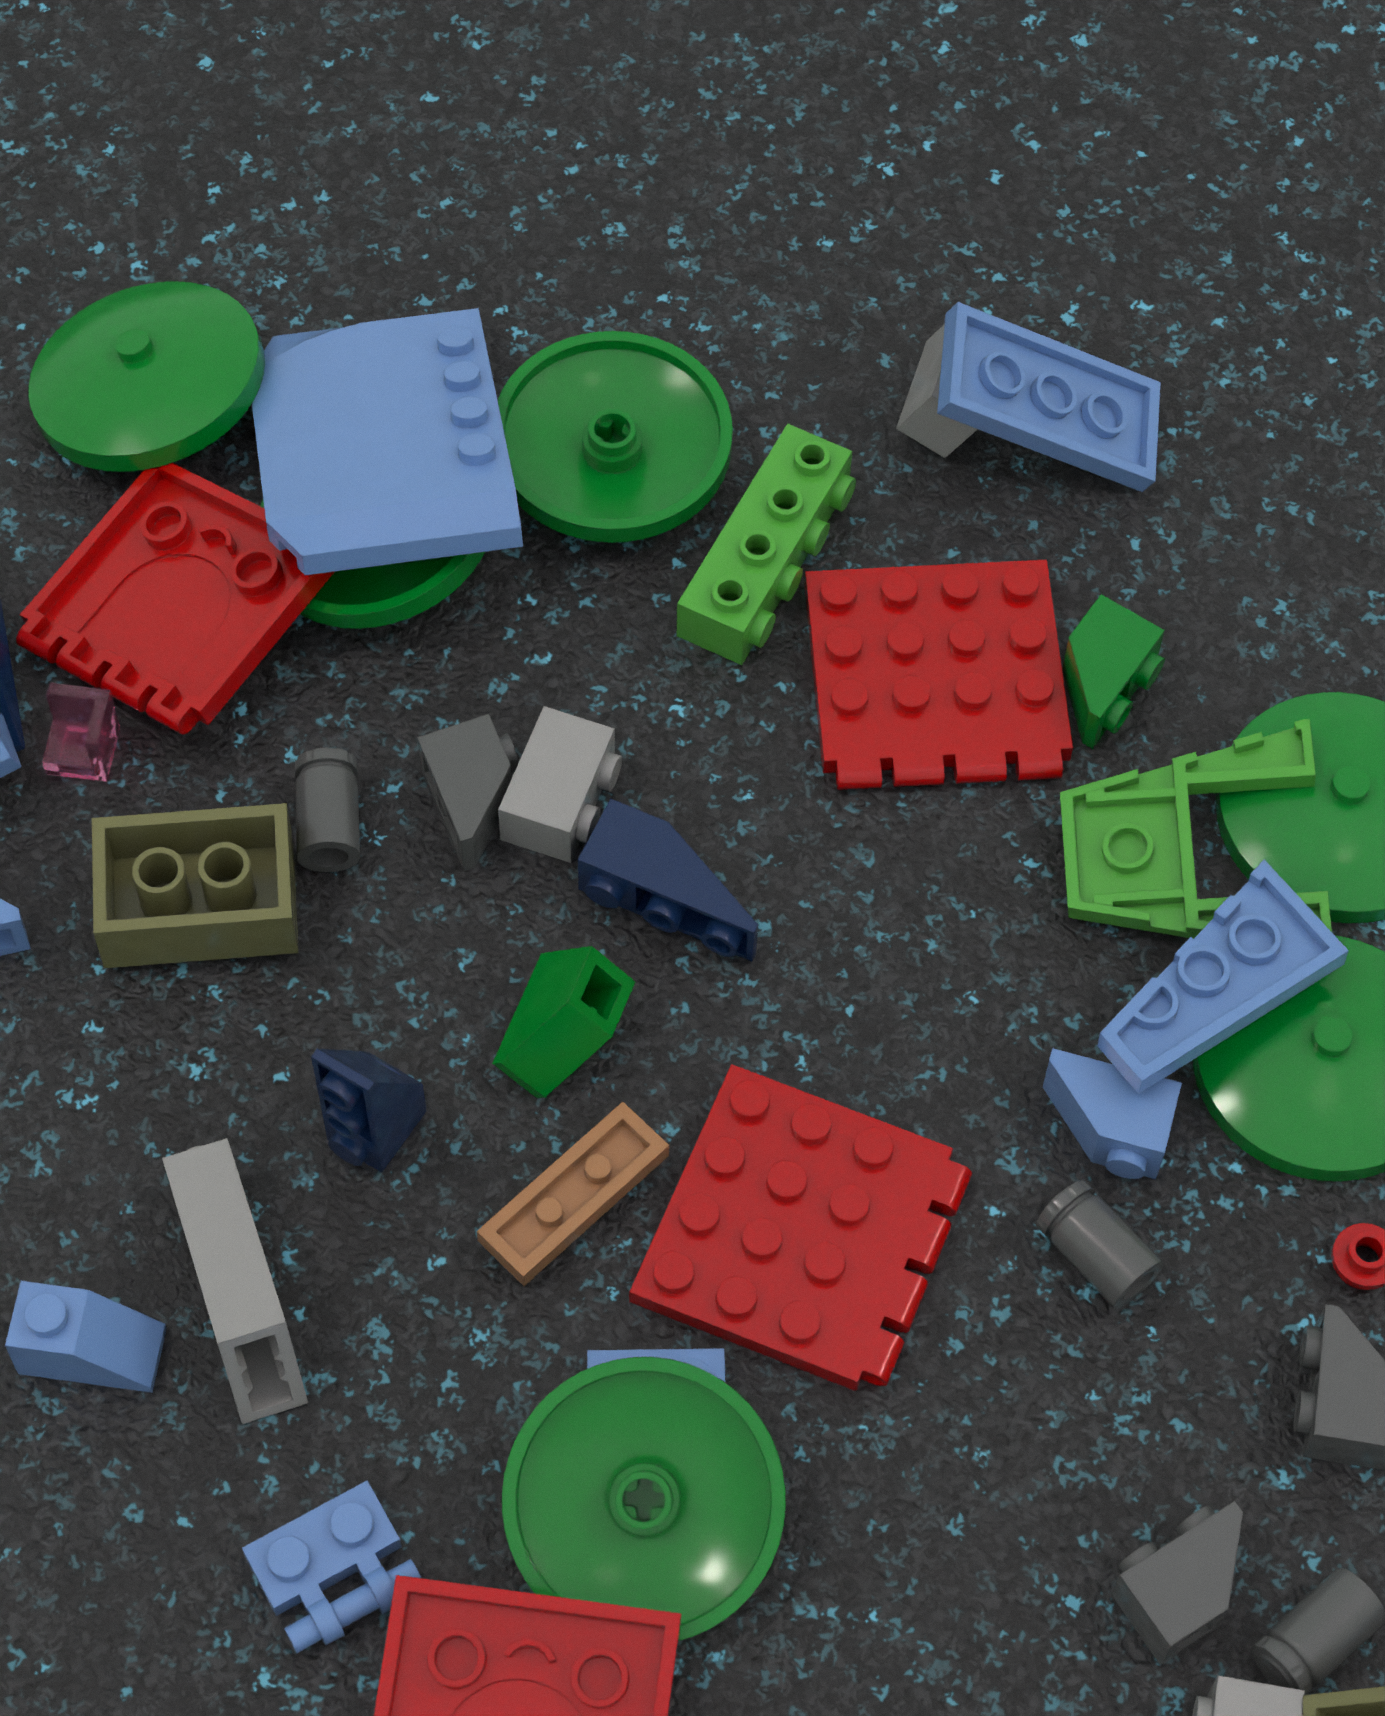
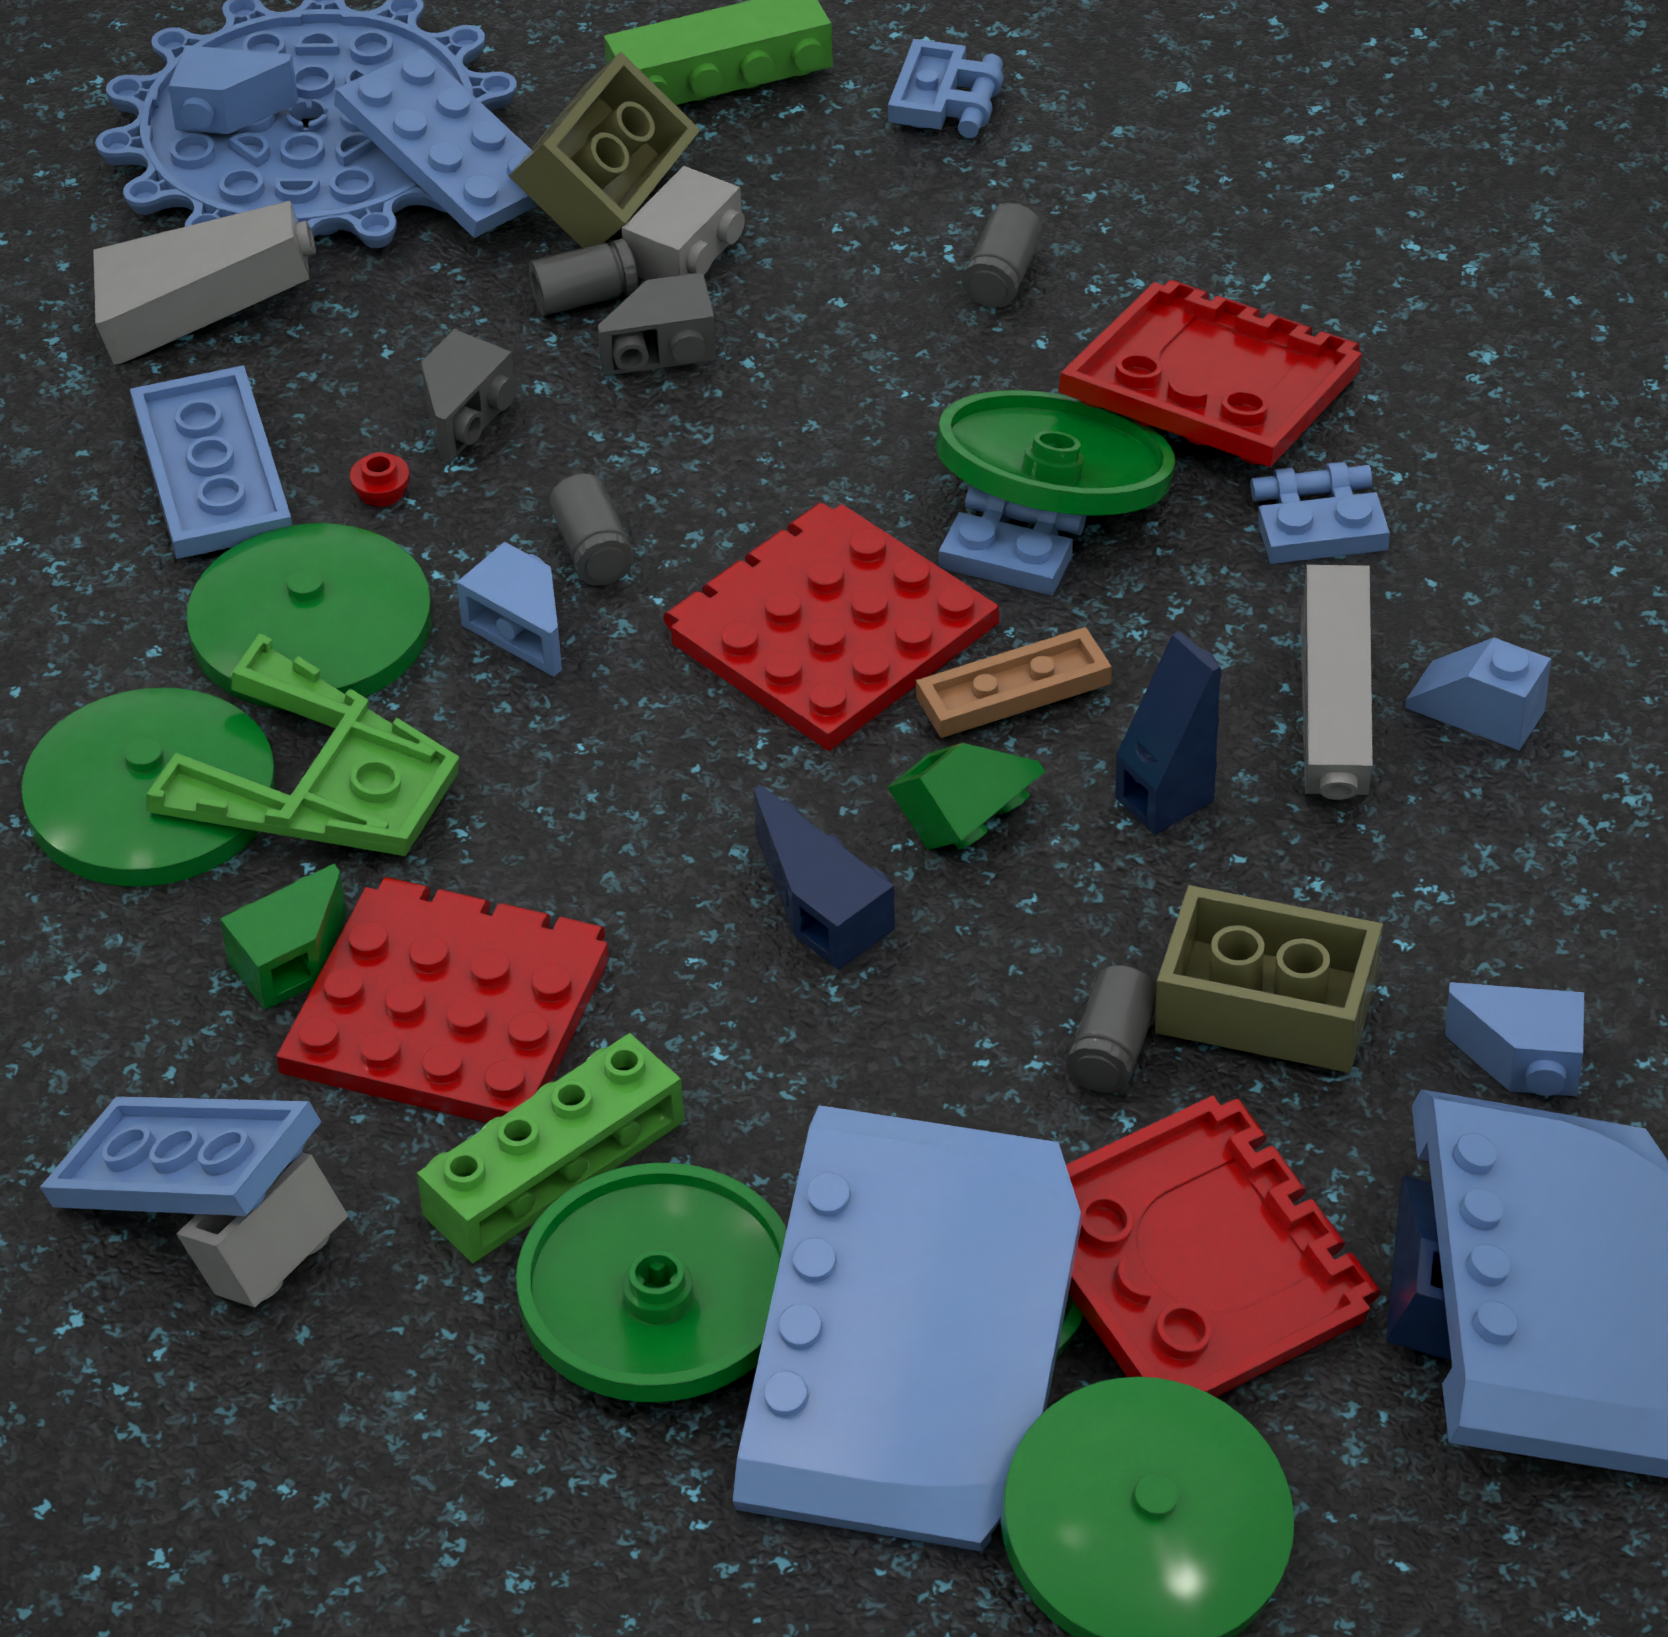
camera: 155 degrees left, 15 degrees down
(81, 732) = (1336, 1173): clear pink panel -> none
(468, 778) = (960, 1013): dark grey slope -> none
(558, 785) = (876, 987): light grey brick -> none
(1237, 969) = (363, 624): medium blue wing -> none

